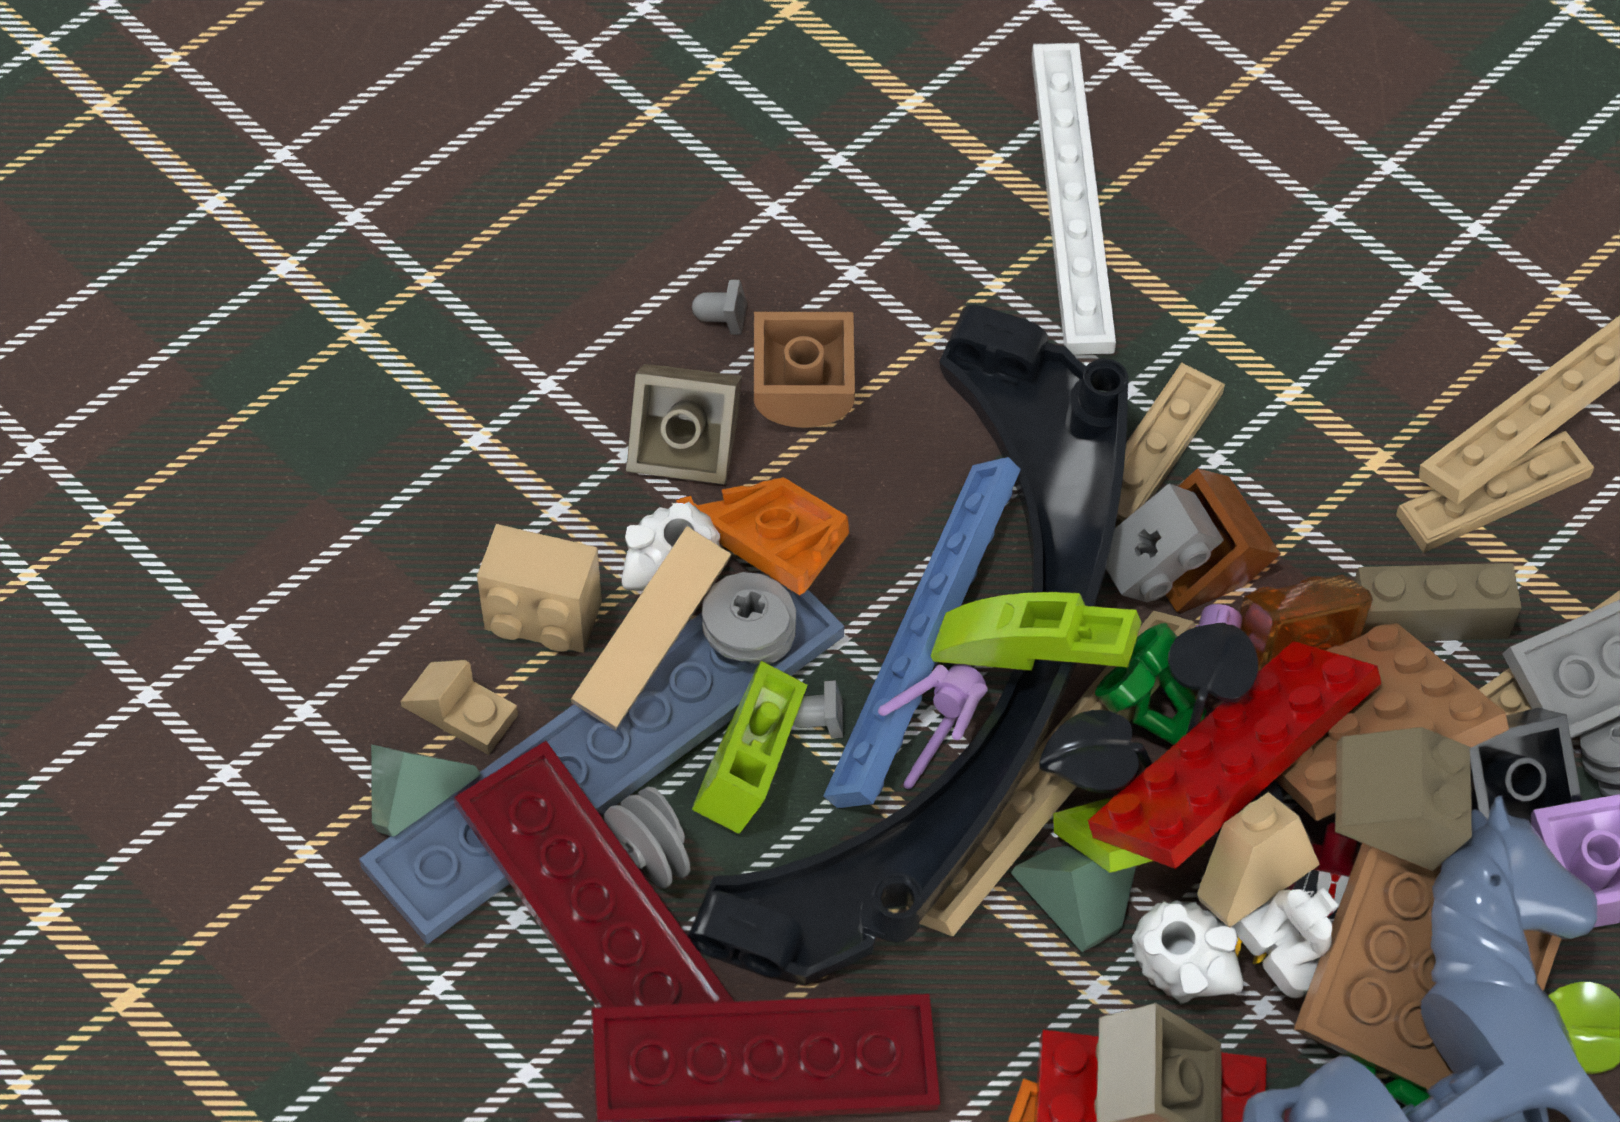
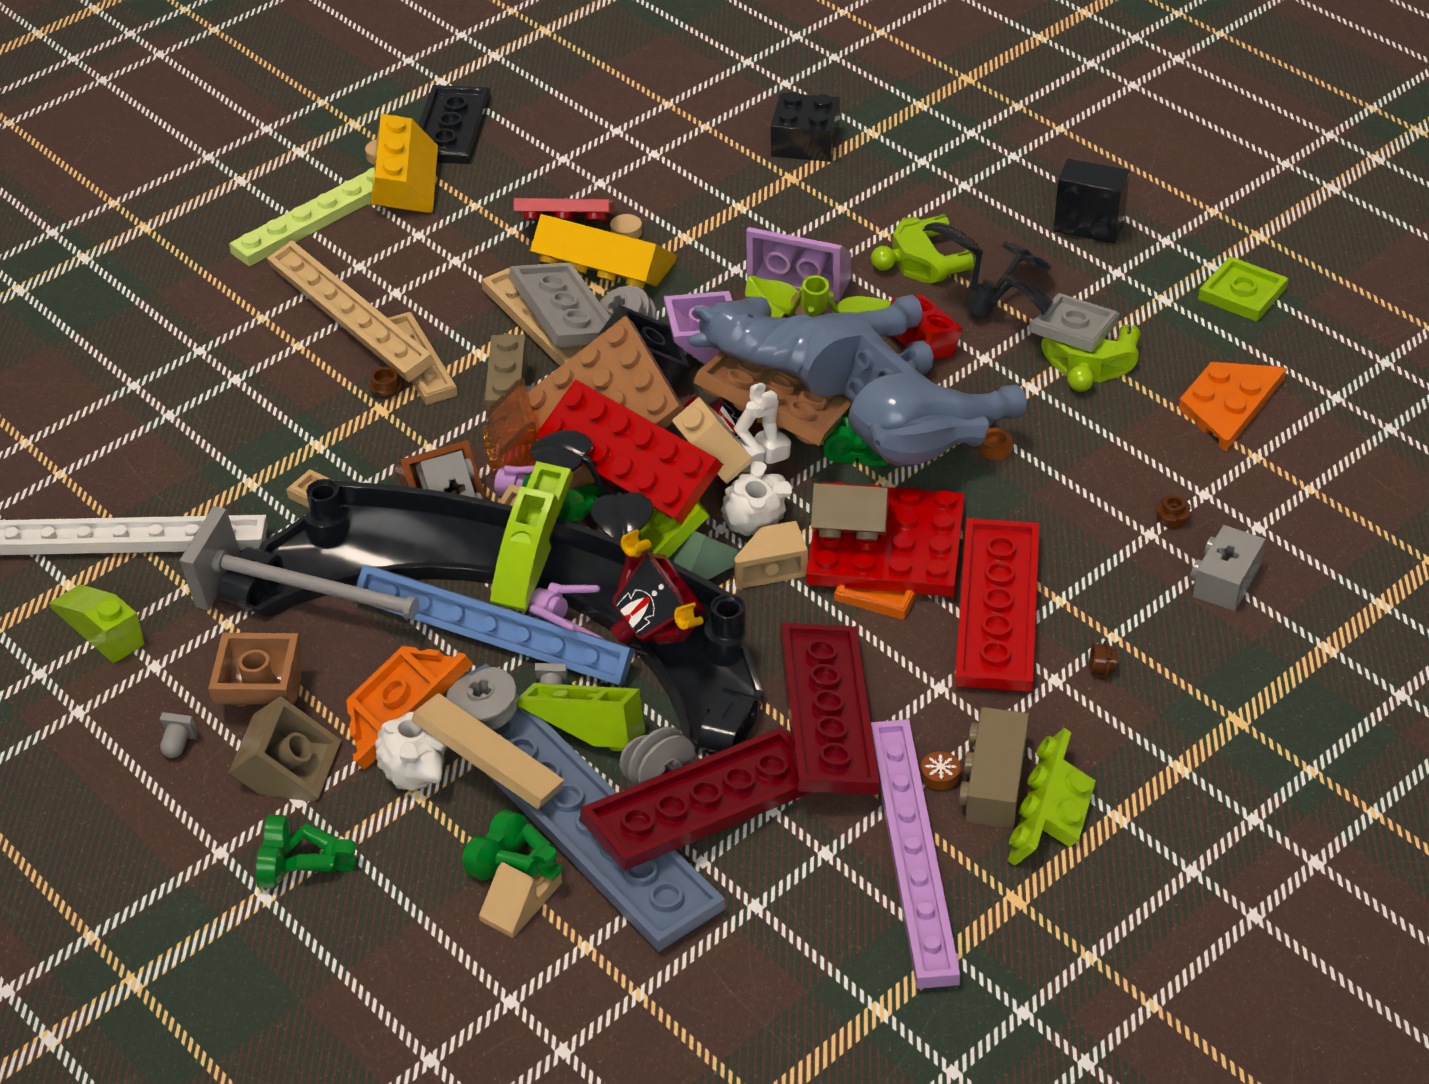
camera: 85 degrees left, 15 degrees down
(411, 785) = (595, 917): sand green slope -> none
(510, 432) = (278, 843): none -> green piece
(514, 660) = (503, 842): none -> green piece
(539, 588) = (437, 825): tan brick -> none
(914, 196) = (101, 620): none -> lime slope
(922, 806) = (653, 597): none -> torso
(1003, 283) = (217, 550): none -> light grey tile
(1085, 979) = (771, 556): none -> tan slope
(1404, 793) = (686, 348): dark tan slope -> none
(1420, 442) = (385, 382): none -> reddish brown plate

